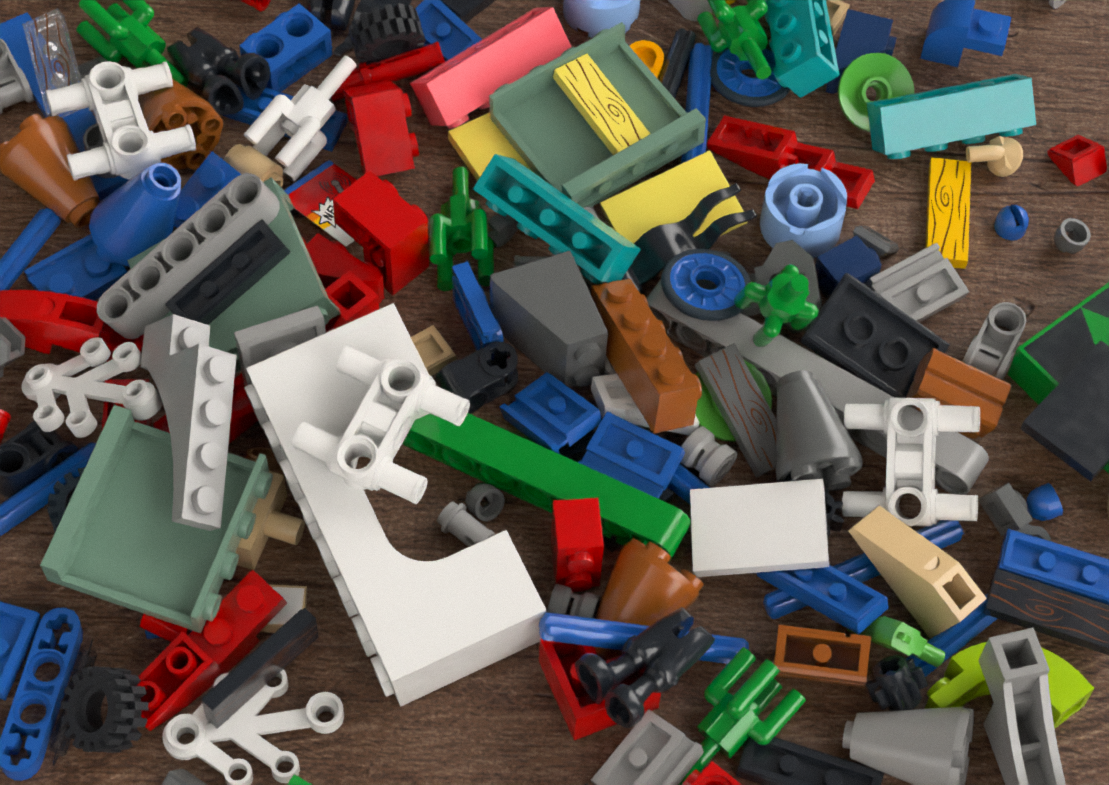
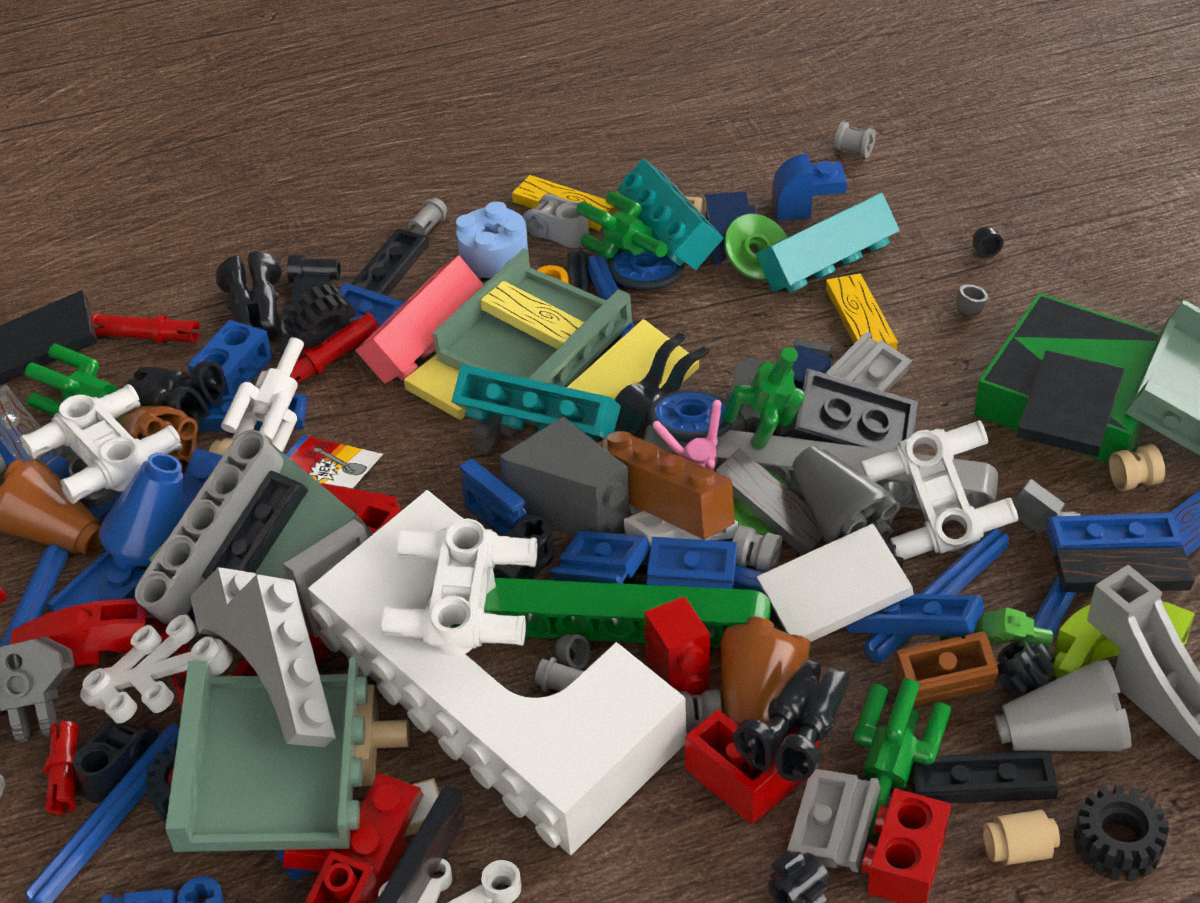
camera: 15 degrees left, 15 degrees down
(379, 122) = (343, 388): red brick -> none
(386, 227) = (384, 455): red brick -> none
(460, 230) = (448, 446): green plant -> none
(614, 635) = (736, 709): blue axle -> none
(693, 333) = (699, 450): none -> bright pink plant
(771, 148) = (716, 318): red slope -> none
(804, 208) = (741, 334): light blue brick -> none
(919, 572) = (993, 571): tan slope -> none
(960, 385) = (934, 415): dark orange brick -> none
(992, 347) = (955, 389): light grey piece -> none
(1002, 155) = (882, 261): tan plate -> none
(1006, 225) = (916, 306): blue hinge -> none
(1044, 503) = (1066, 491): blue hinge -> none
(1079, 159) = (945, 248): red slope -> none

